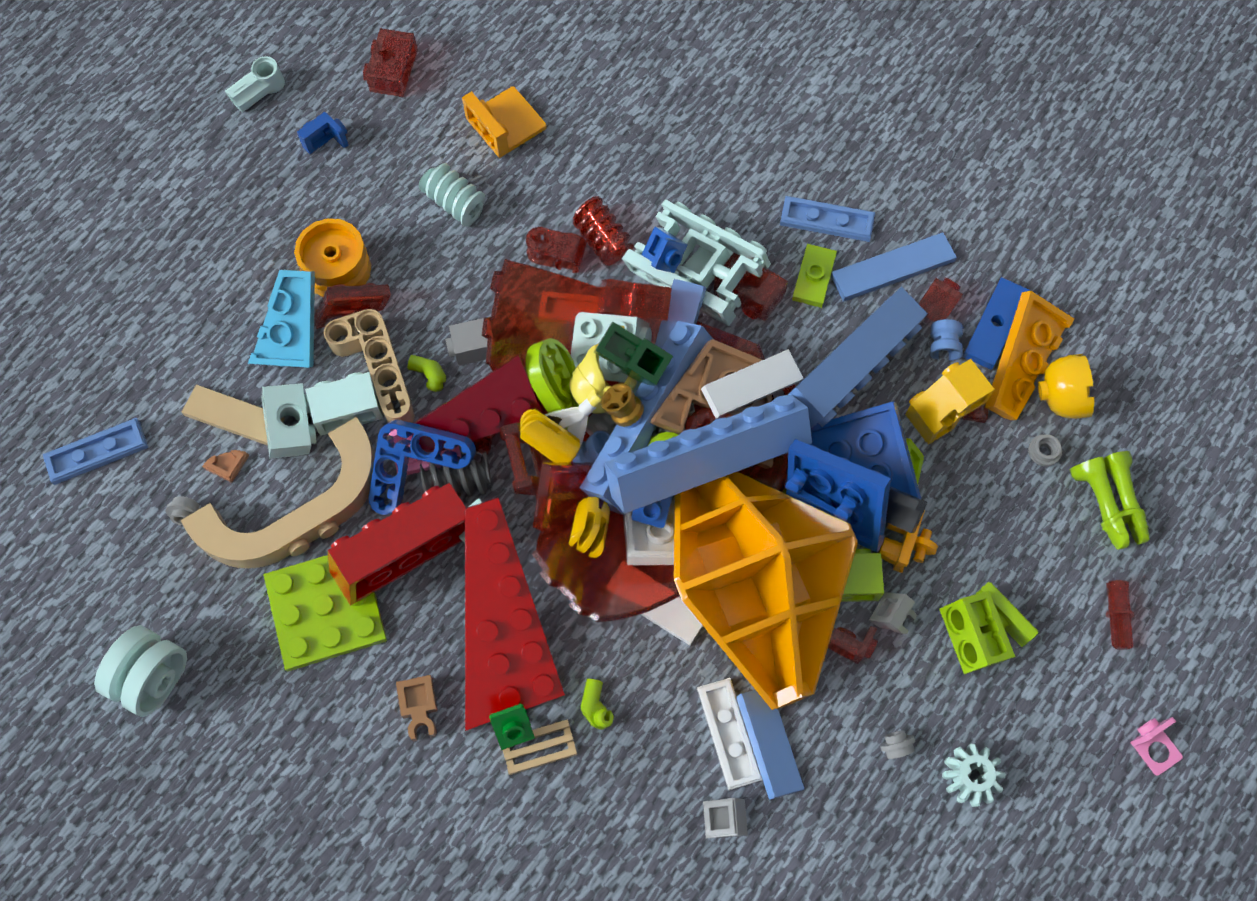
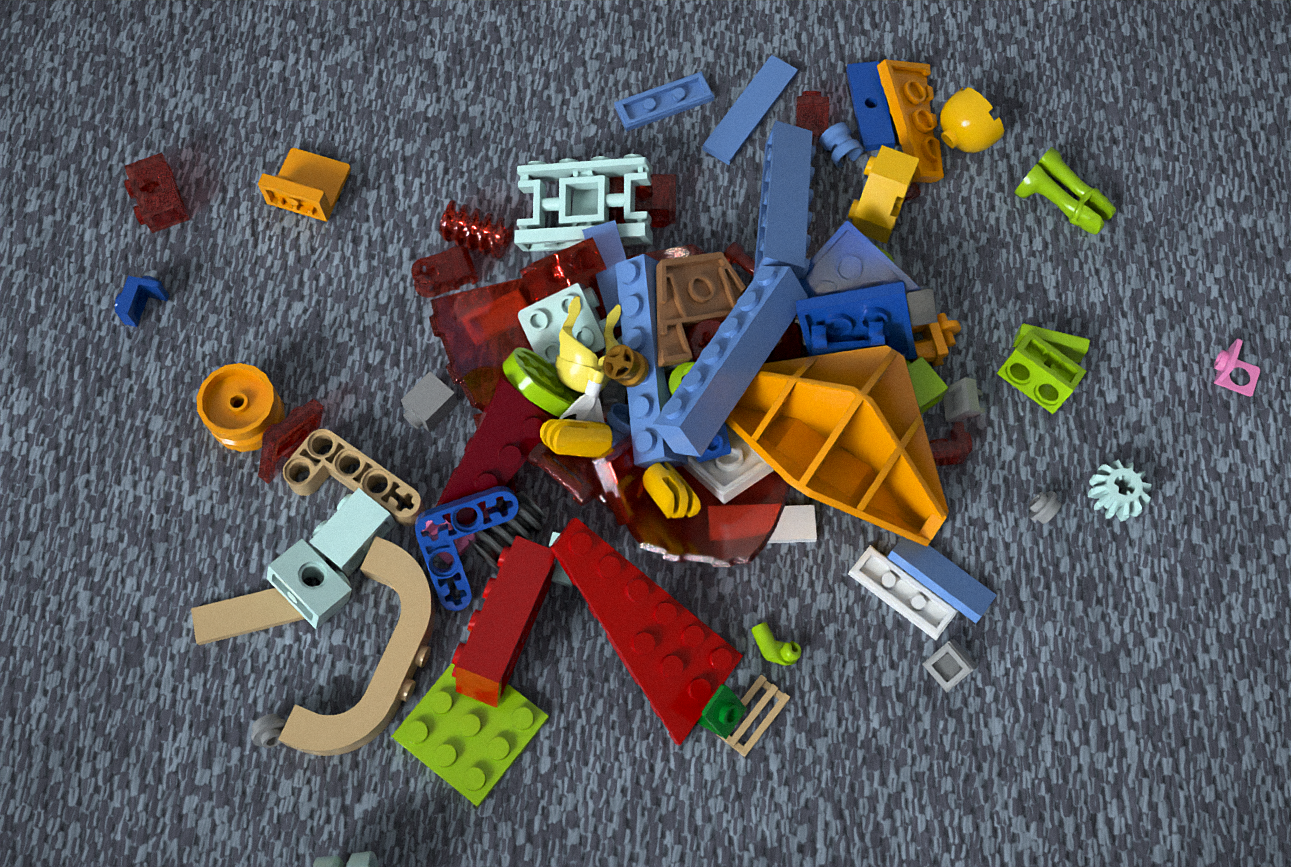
camera: 35 degrees left, 0 degrees up
(95, 451) = (135, 735): medium blue tile -> none
(226, 464) = (277, 662): nougat tile -> none
(263, 79) = (33, 294): light aqua piece -> none
(289, 323) = (243, 493): medium azure wing -> none
(417, 700) = (618, 750): medium nougat plate -> none
(431, 370) = (410, 451): lime arm -> none
(452, 193) = (310, 279): light aqua piece -> none
(633, 355) = (606, 317): dark green brick -> none
(664, 250) = (553, 210): blue bracket -> none
(752, 383) = (721, 278): white tile -> none
(814, 275) = (689, 157): lime plate -> none
(1051, 443) = (984, 179): light grey plate -> none
(1120, 614) = (1135, 284): clear red axle -> none

